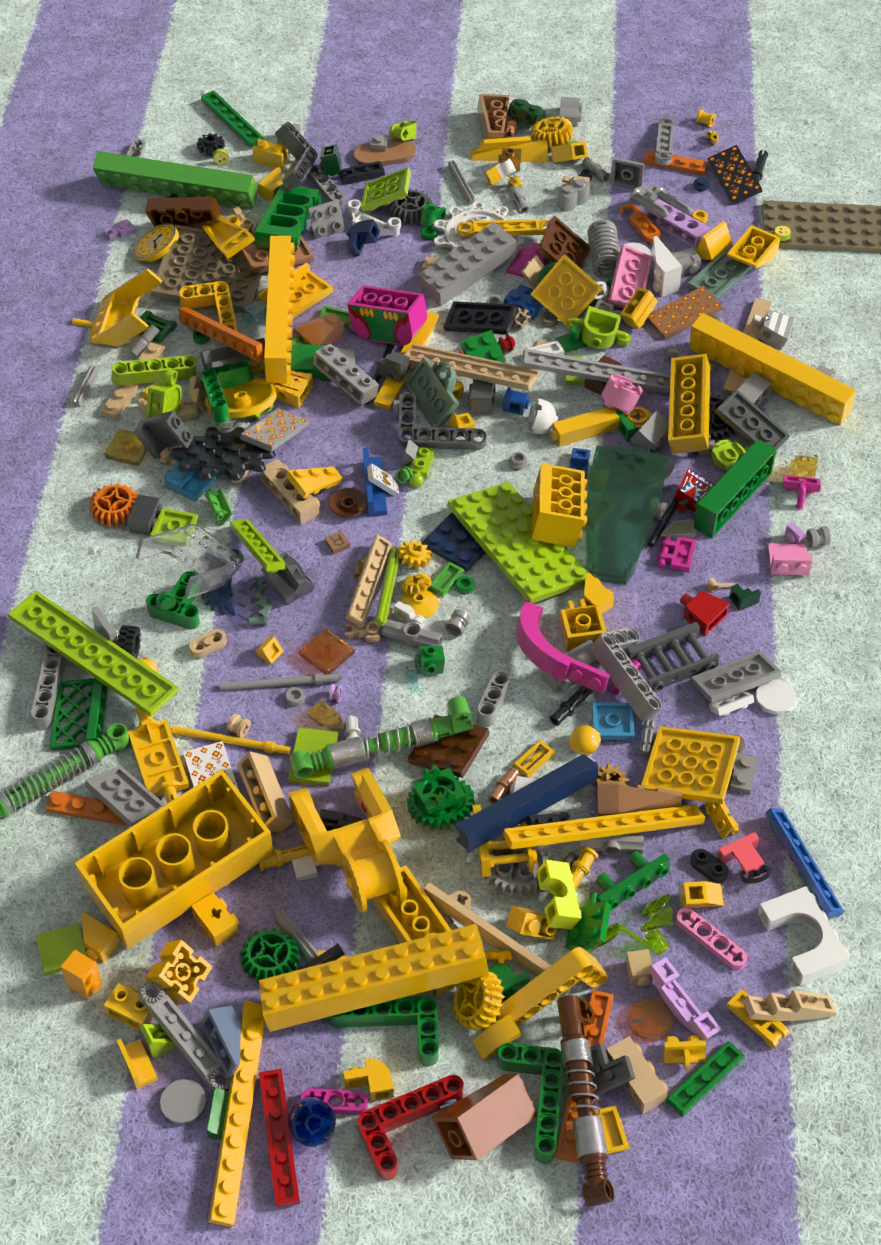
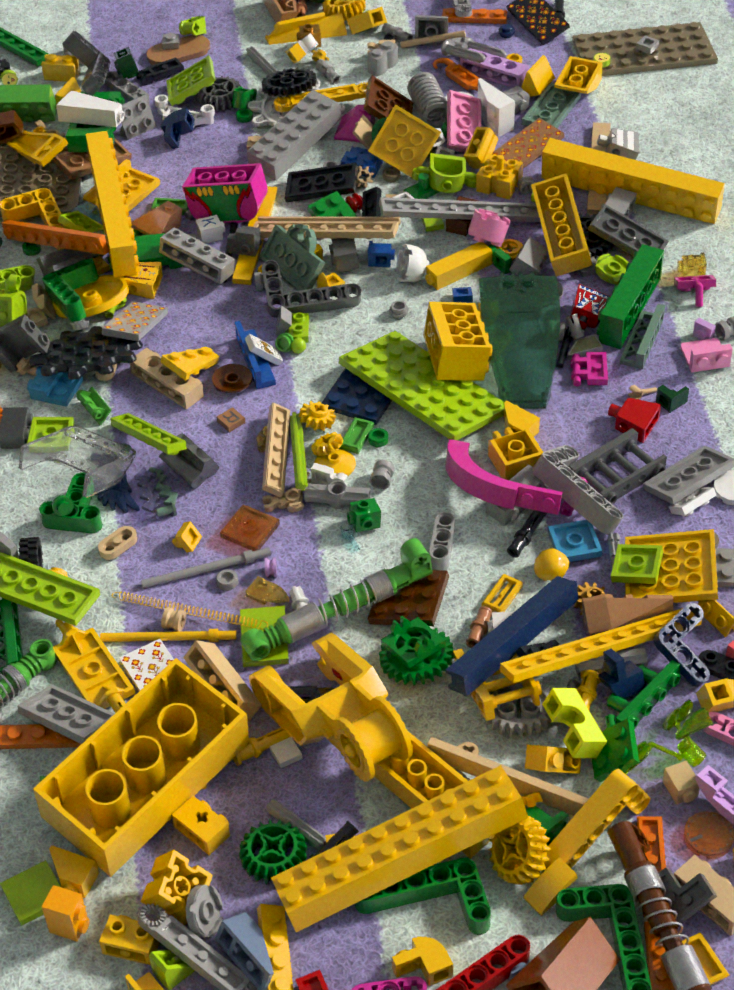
camera: 10 degrees left, 5 degrees down
(196, 996) = (203, 910): none -> light grey tile
(248, 323) = (81, 222): none -> lime plate
(282, 208) = (89, 110): none -> white slope
(307, 745) = (205, 610): none -> yellow piece
(366, 347) = (210, 229): none -> white brick
(477, 207) = (289, 82): none -> black gear
(520, 342) = (370, 202): none -> black plate
(614, 861) = (620, 676): none -> dark blue brick
(628, 182) = (431, 39): none -> tan bar
(648, 340) = (499, 176): none -> yellow brick
(659, 755) = (637, 564): none -> lime plate
(671, 839) = (676, 644): none -> dark blue beam
(674, 511) = (575, 329): none -> light grey pin
(738, 534) = (646, 340): none -> sand green fence
(831, 224) = (647, 44): none -> light grey plate

